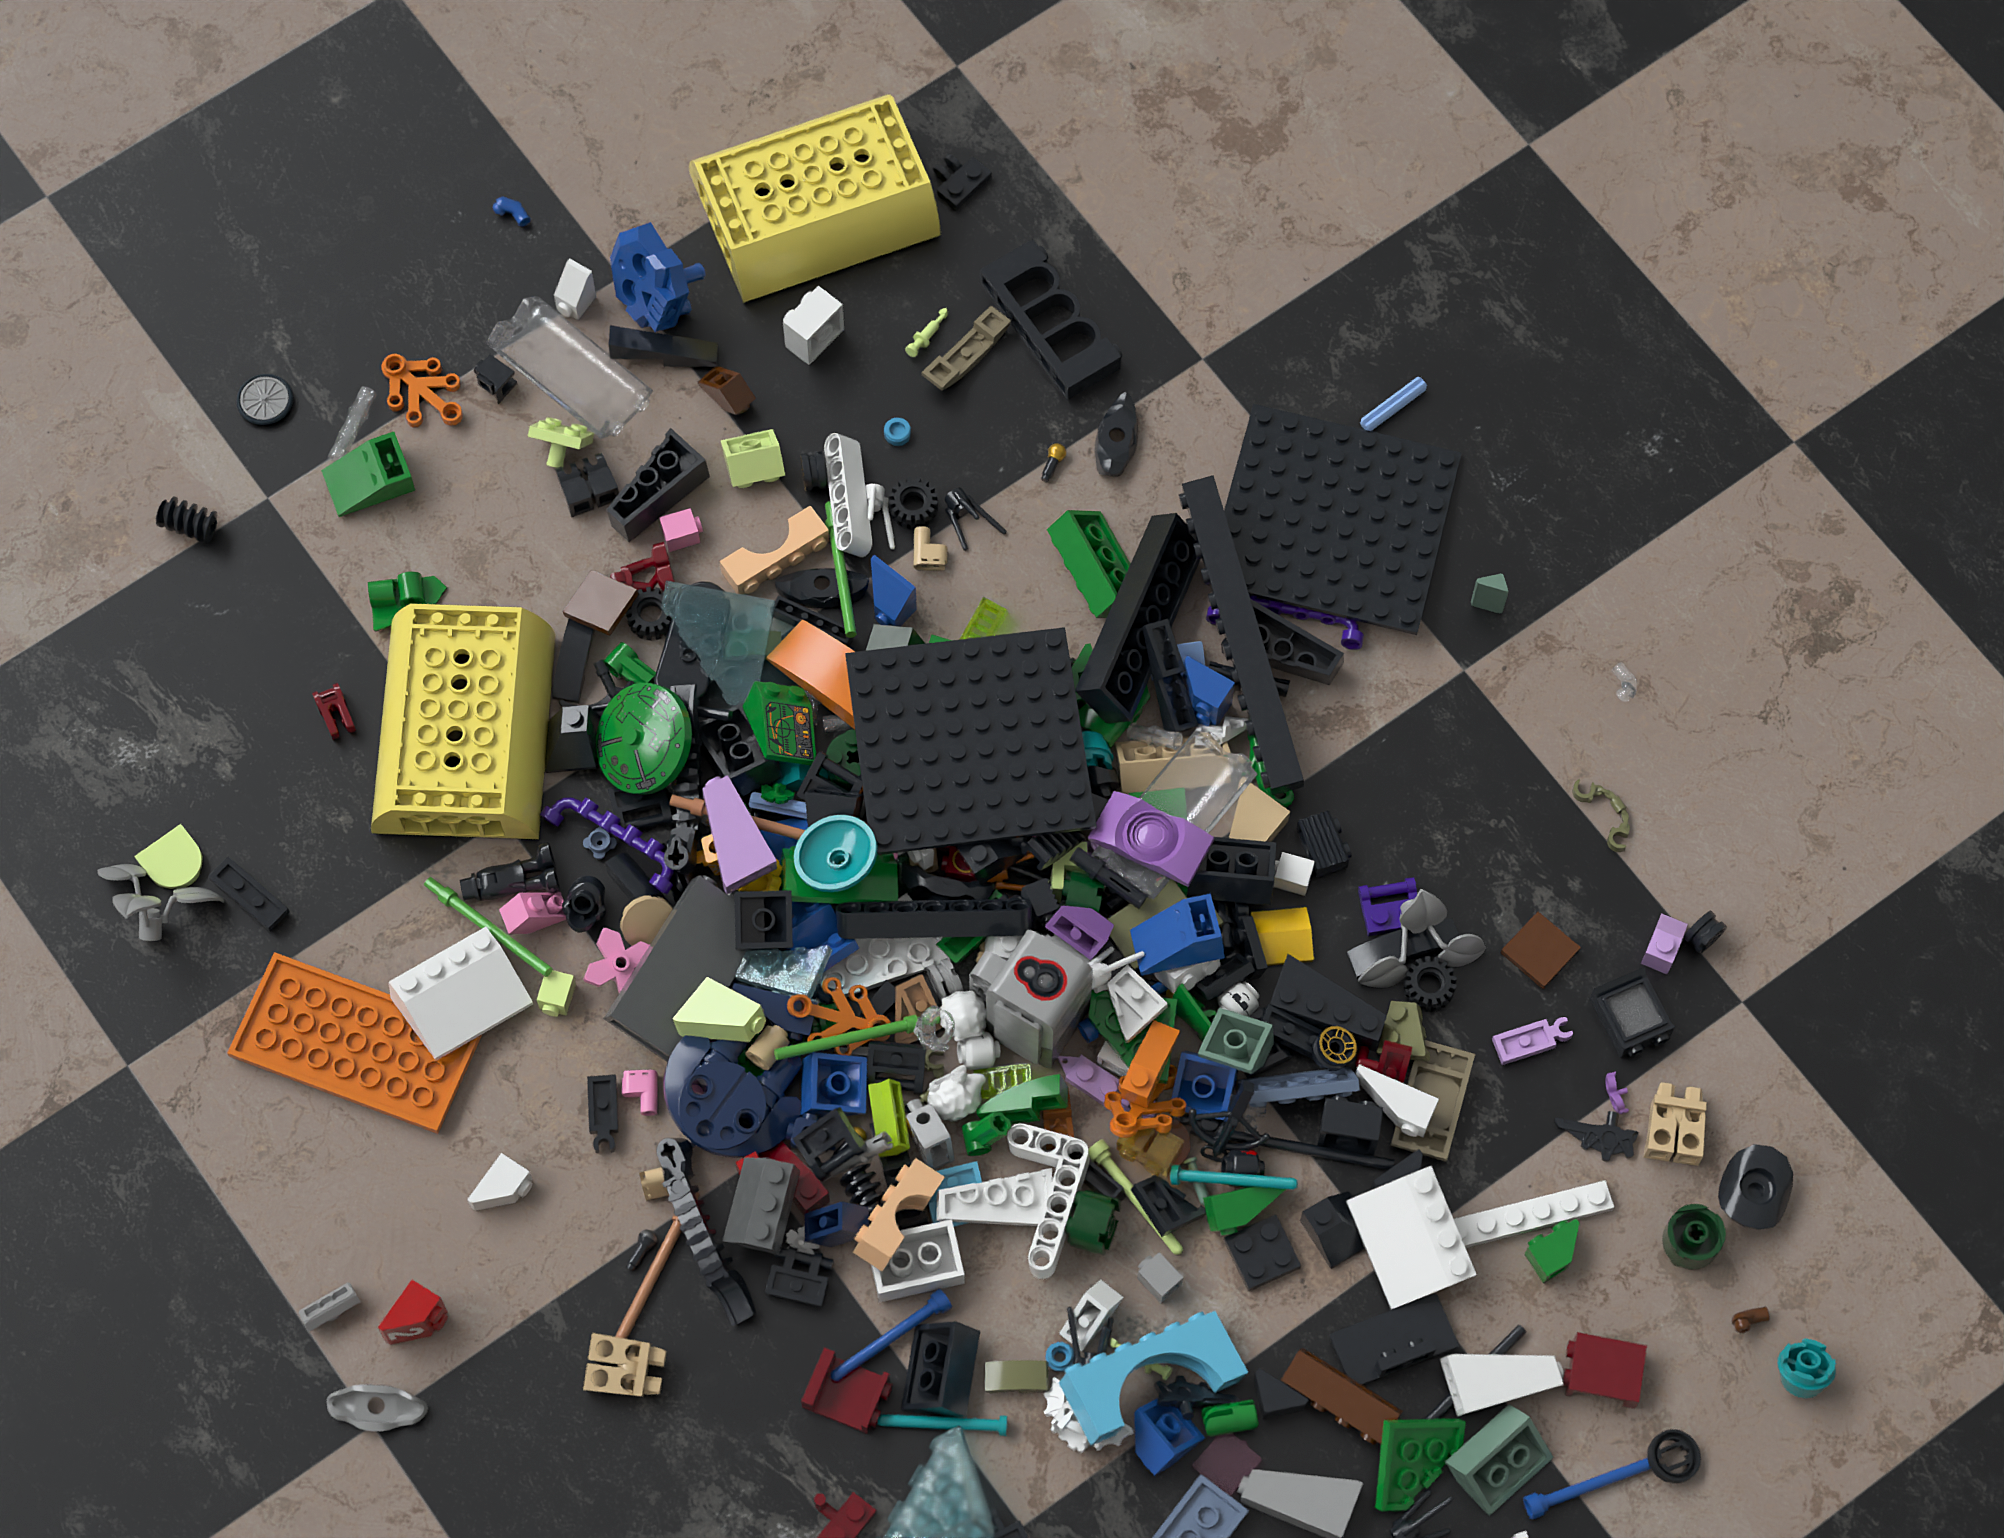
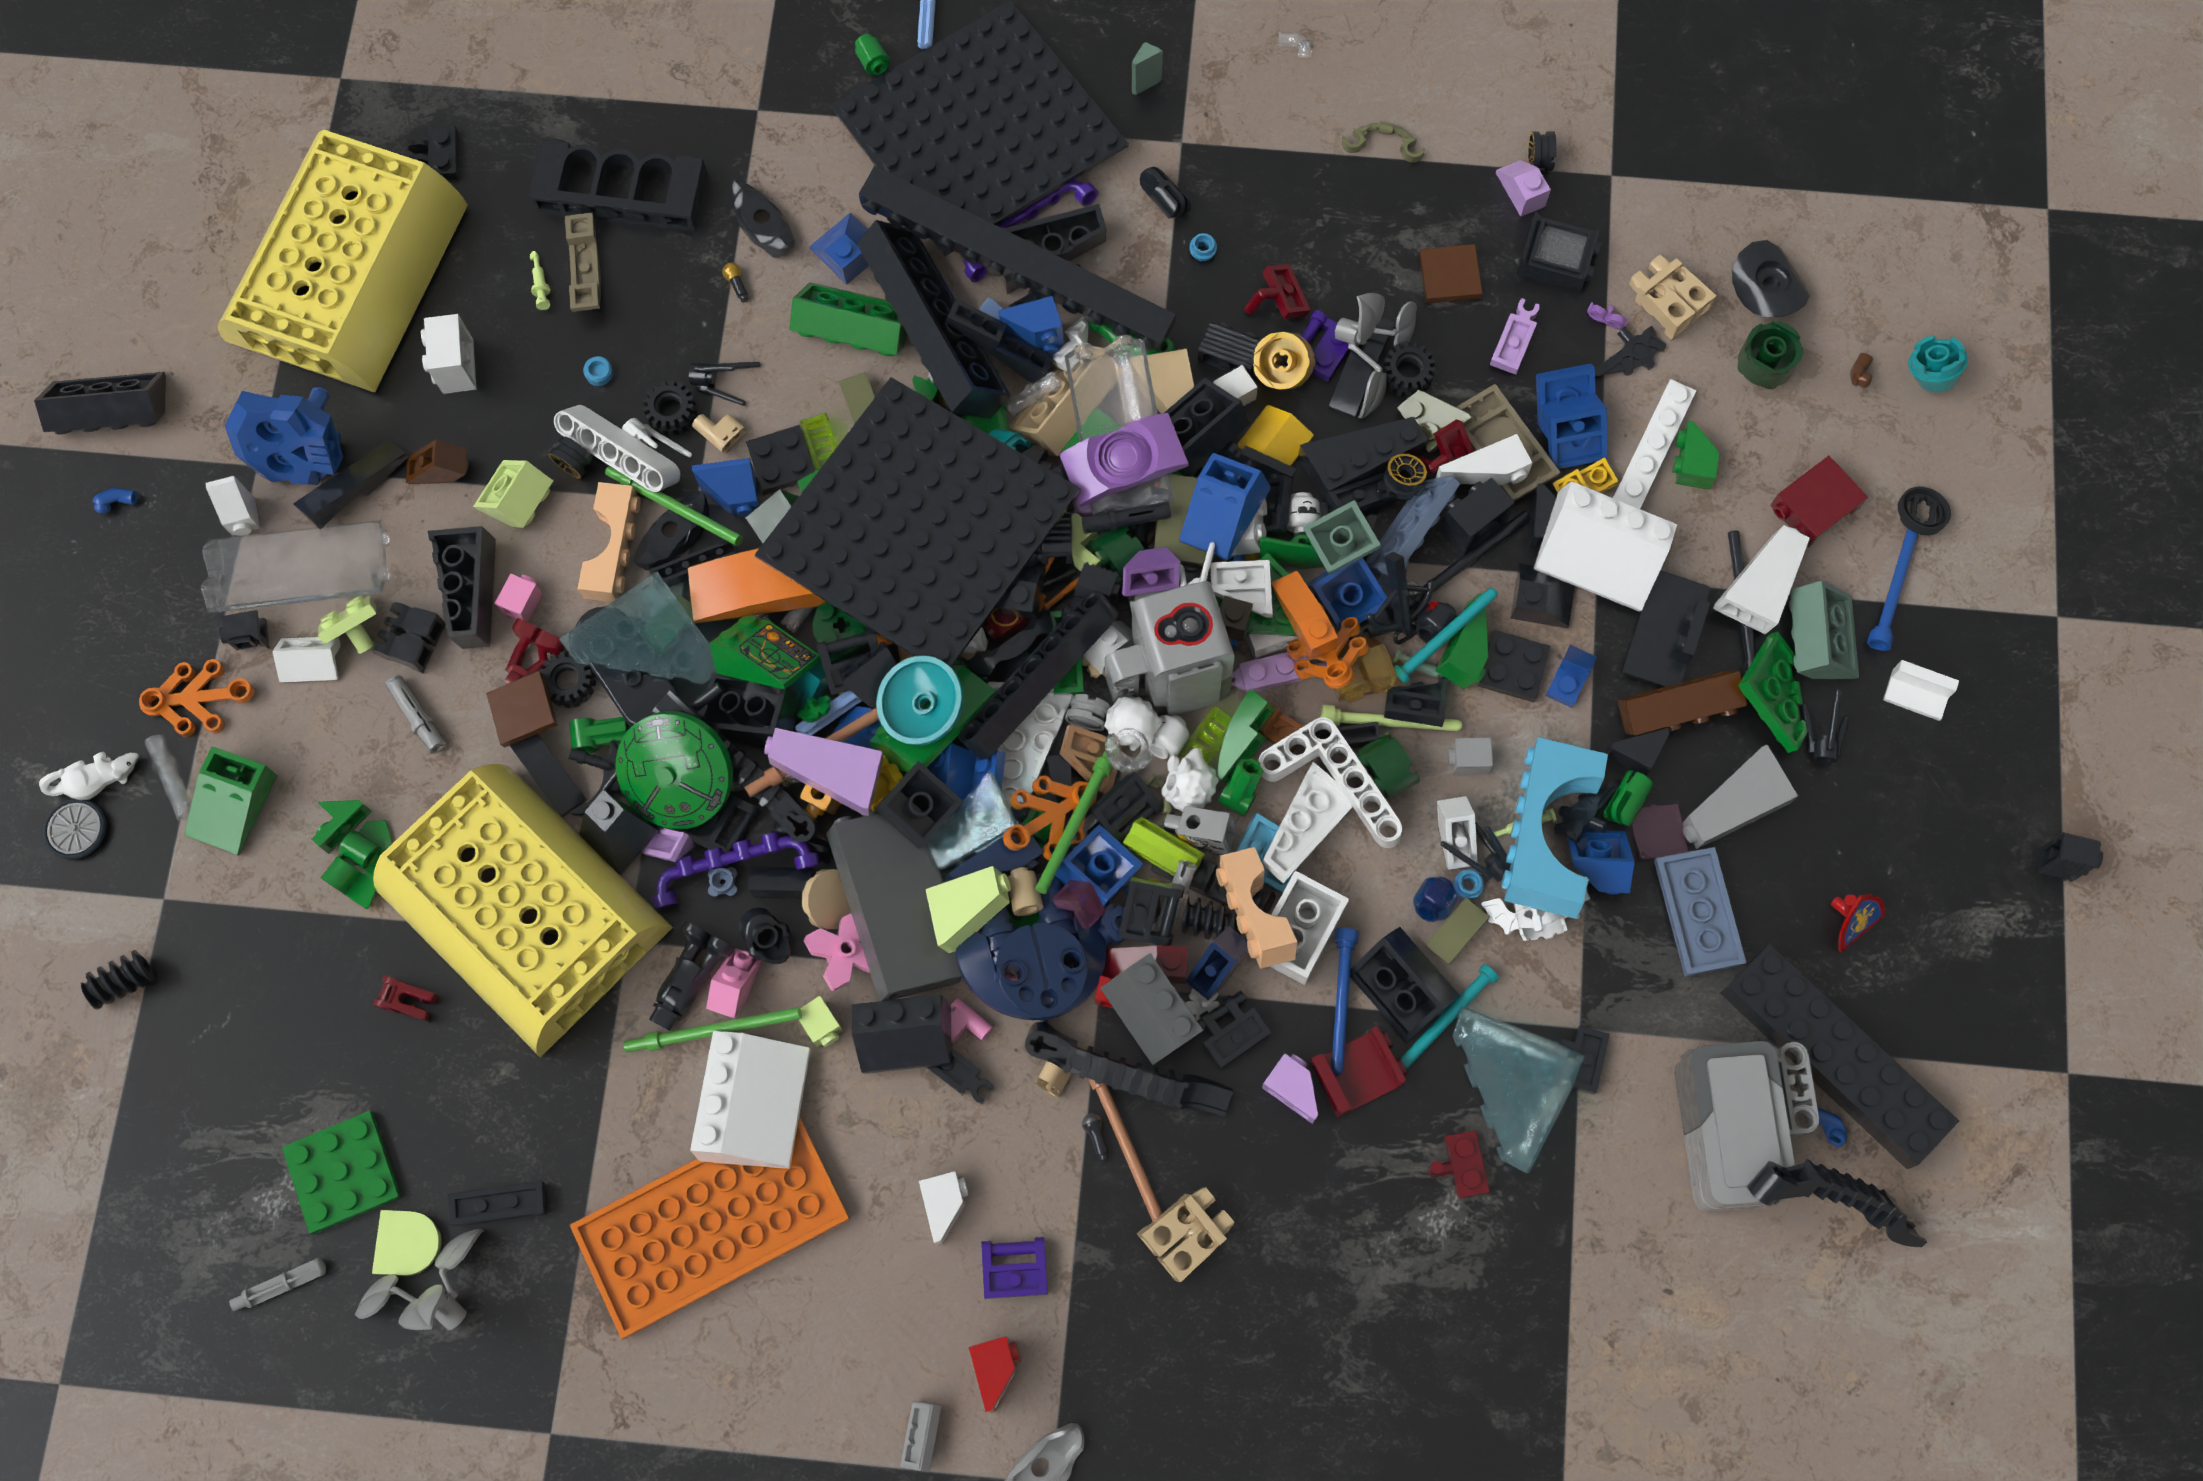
camera: 45 degrees left, 5 degrees up
(77, 805) = (279, 1284): none -> light grey piece
(184, 777) = (341, 1172): none -> green plate
(302, 376) = (88, 780): none -> white animal
(424, 560) = (346, 818): none -> green slope
(491, 1278) = (1014, 1279): none -> dark purple plate
(509, 434) = (306, 659): none -> white panel
(534, 547) = (421, 723): none -> light grey pin
(572, 139) = (102, 403): none -> black slope
(592, 784) = (669, 845): none -> lavender slope
(595, 1053) = (902, 1033): none -> black slope
(795, 1092) = (1082, 899): none -> clear pink panel
(795, 1353) = (1293, 1086): none -> lavender slope
(944, 609) = (780, 459): none -> black plate
(1025, 1340) = (1435, 899): none -> clear blue head
(1043, 616) = (857, 394): none -> olive slope
(1099, 1016) = (1236, 617): none -> dark brown brick
(1143, 504) = (840, 249): none -> blue slope
(1293, 1300) = (1571, 676): none -> blue slope
(1319, 396) = (871, 54): none -> green brick
(1345, 887) = (1267, 360): none -> yellow brick
(1393, 750) = (1203, 240): none -> dark azure plate
(1406, 692) = (1164, 192): none -> black arm
(1407, 843) = (1285, 291): none -> dark red plate
(1462, 1188) = (1595, 477): none -> yellow slope
(1498, 1130) = (1572, 416): none -> blue bracket

